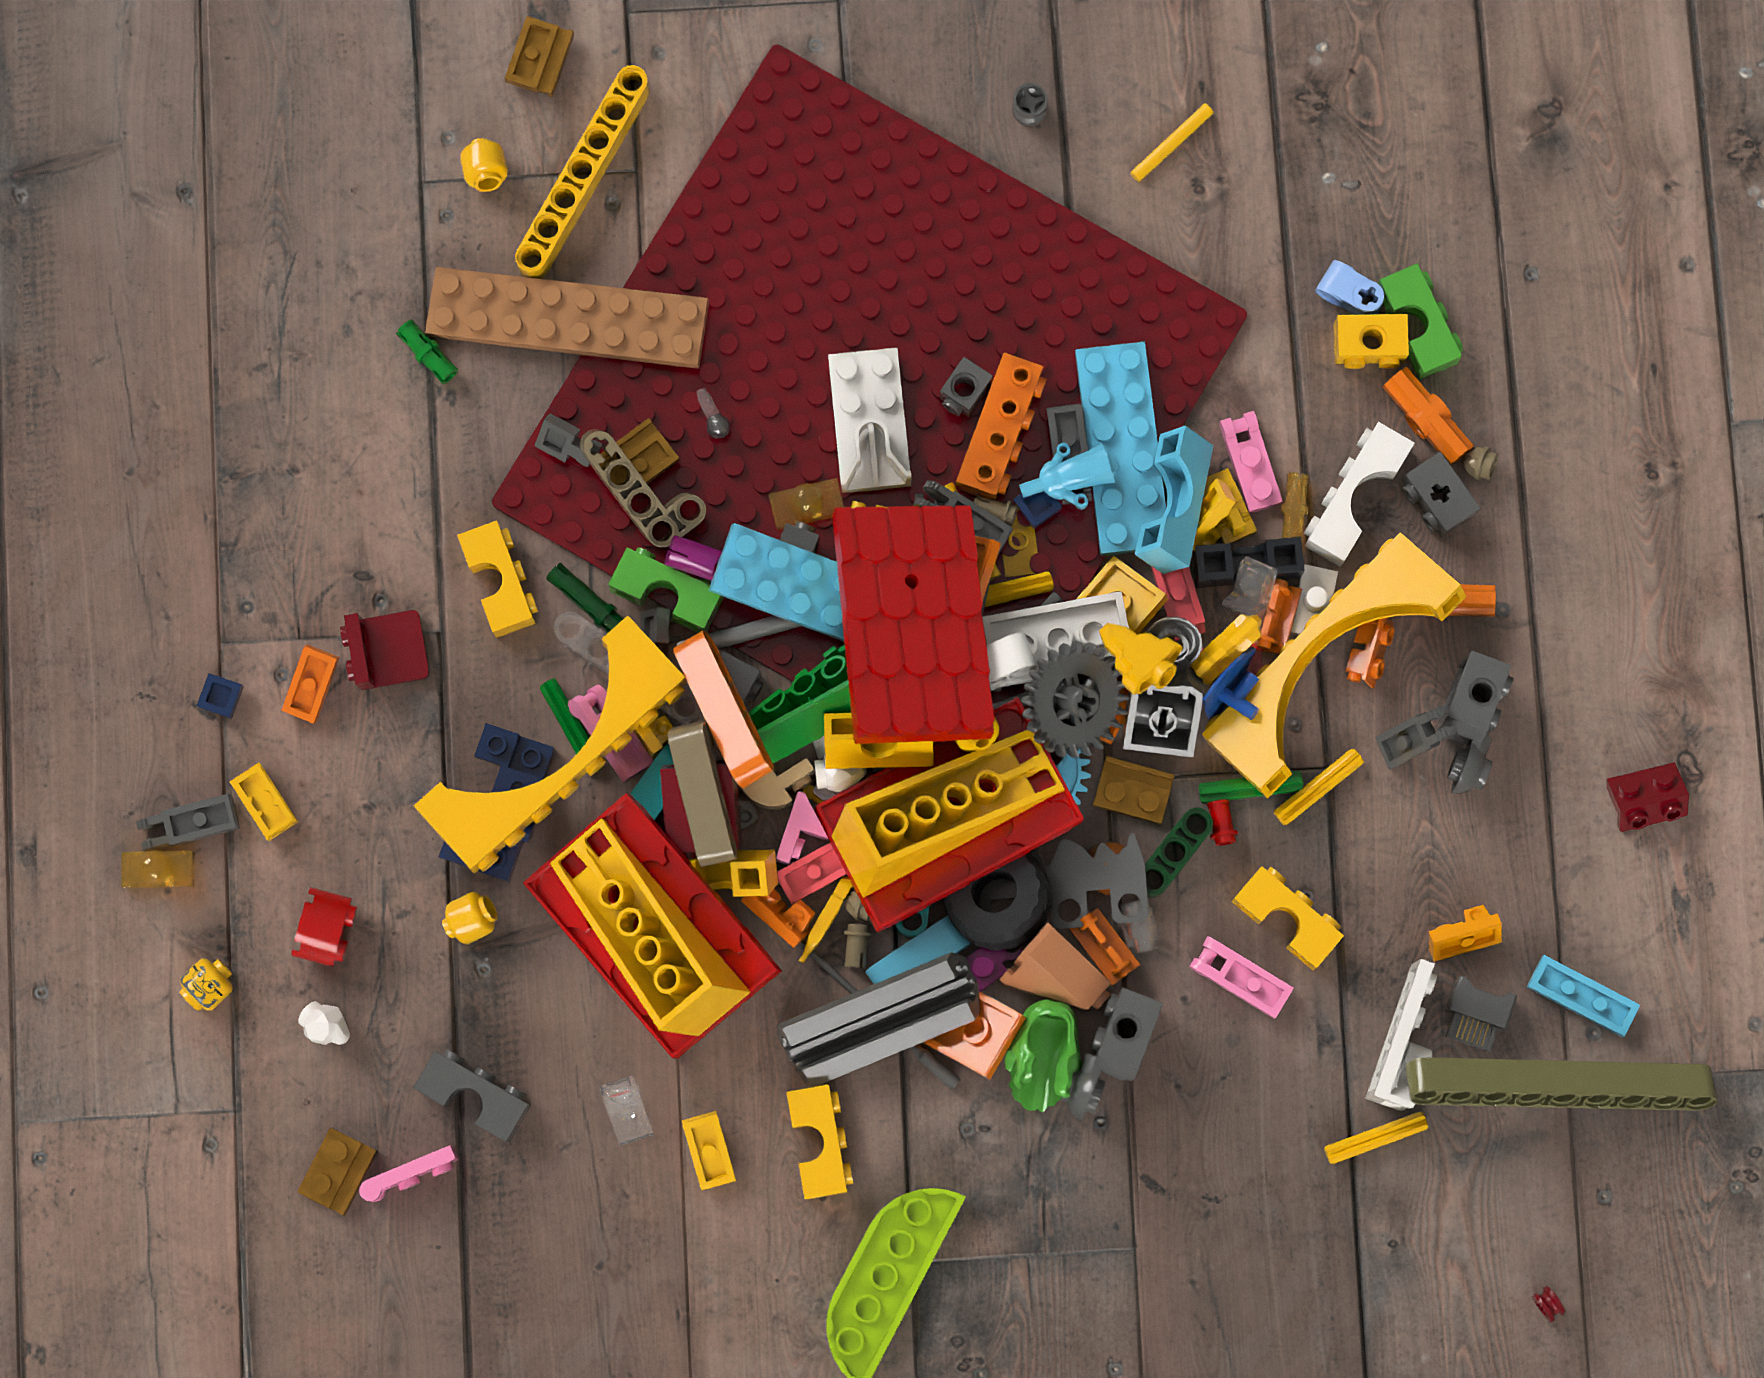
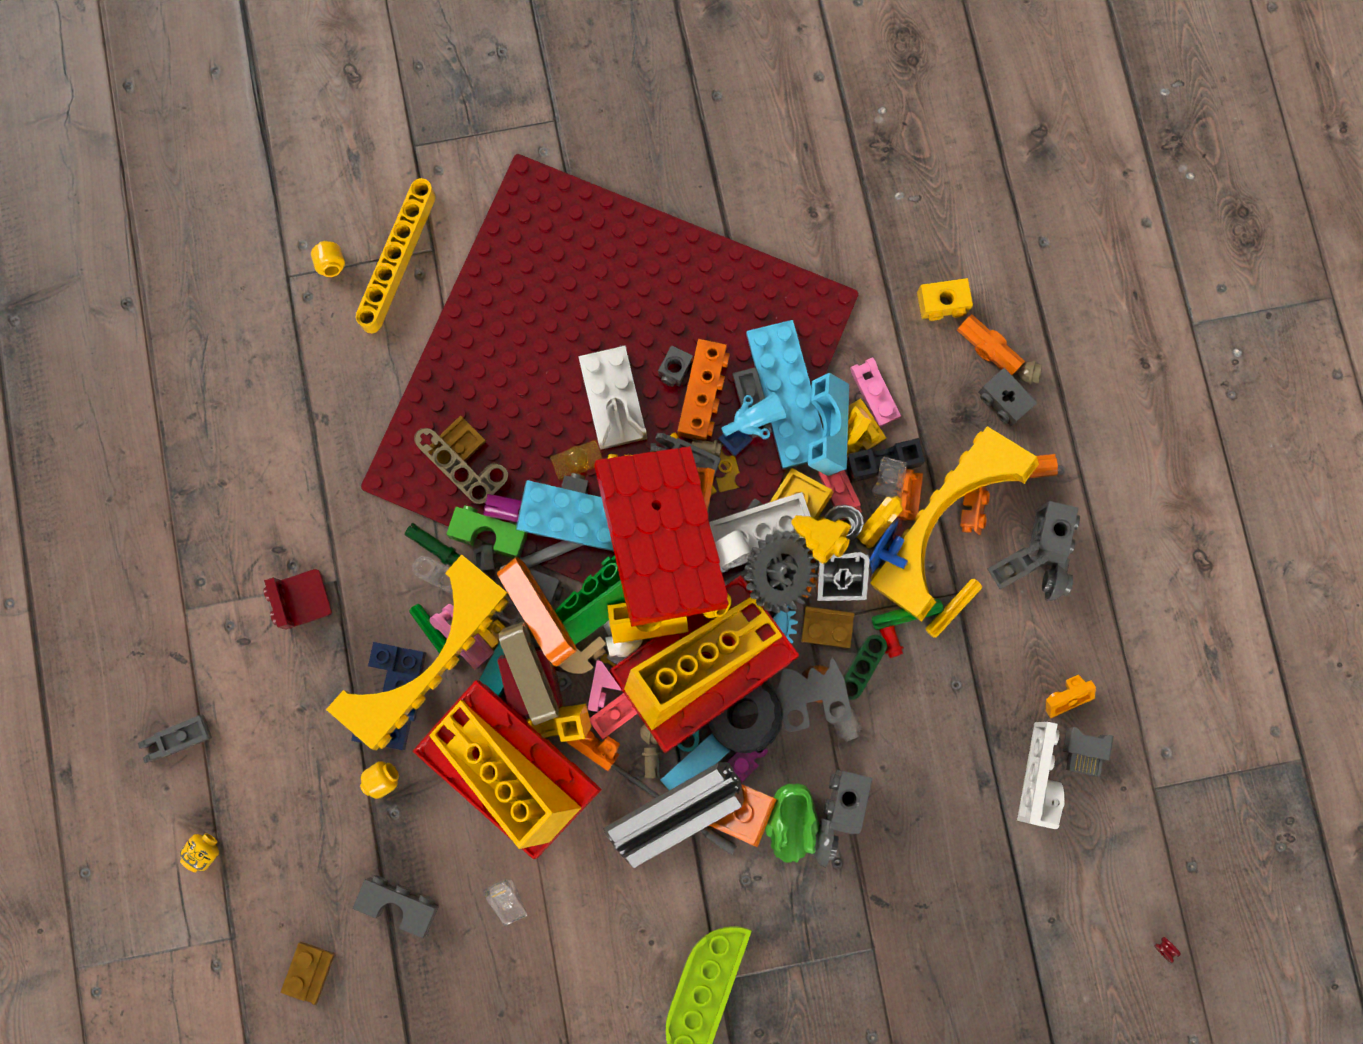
camera: 10 degrees left, 0 degrees up
(157, 869) = (157, 774): clear yellow tile -> none
(220, 696) = (187, 647): dark blue plate -> none
(264, 801) = (226, 717): yellow plate -> none
(310, 683) = (248, 630): orange hinge -> none
(323, 927) = (275, 802): red brick -> none
(324, 1024) = (285, 869): white rock -> none
(407, 1174) = (357, 969): bright pink plate -> none
(427, 352) = (304, 390): green pin -> none
(489, 549) = (381, 557): yellow arch -> none
(539, 56) = (357, 181): pearl gold plate -> none
(561, 440) = (402, 438): dark grey plate -> none
(567, 317) = (397, 354): medium nougat plate -> none
(708, 1150) = (567, 923): yellow hinge -> none
(717, 424) = (508, 413): piece -> none
(816, 1109) = (652, 927): yellow arch -> none
(827, 916) = (628, 745): yellow piece -> none
(1019, 588) = (730, 499): yellow axle -> none
(1029, 96) = (694, 166): dark grey wheel -> none
(1057, 972) = (793, 763): nougat slope -> none
(1105, 947) = (824, 739): orange hinge -> none
(1171, 142) = (791, 185): yellow bar -> none
(1242, 978) = (921, 748): bright pink plate -> none
(1295, 505) = (909, 417): clear yellow pin -> none
(1314, 933) = (966, 712): yellow arch -> none
(1317, 590) = (933, 478): white tile -> none
(1347, 288) = (924, 266): light blue piece -> none
(1376, 1137) = (1029, 848): yellow axle -> none
(1380, 457) = (940, 430): white arch -> none
(1411, 293) = (968, 264): bright green arch -> none
(1560, 1084) = (1154, 795): olive beam -> none
(1583, 996) = (1157, 729): medium azure plate -> none
(1648, 797) = (1179, 584): dark red bracket -> none

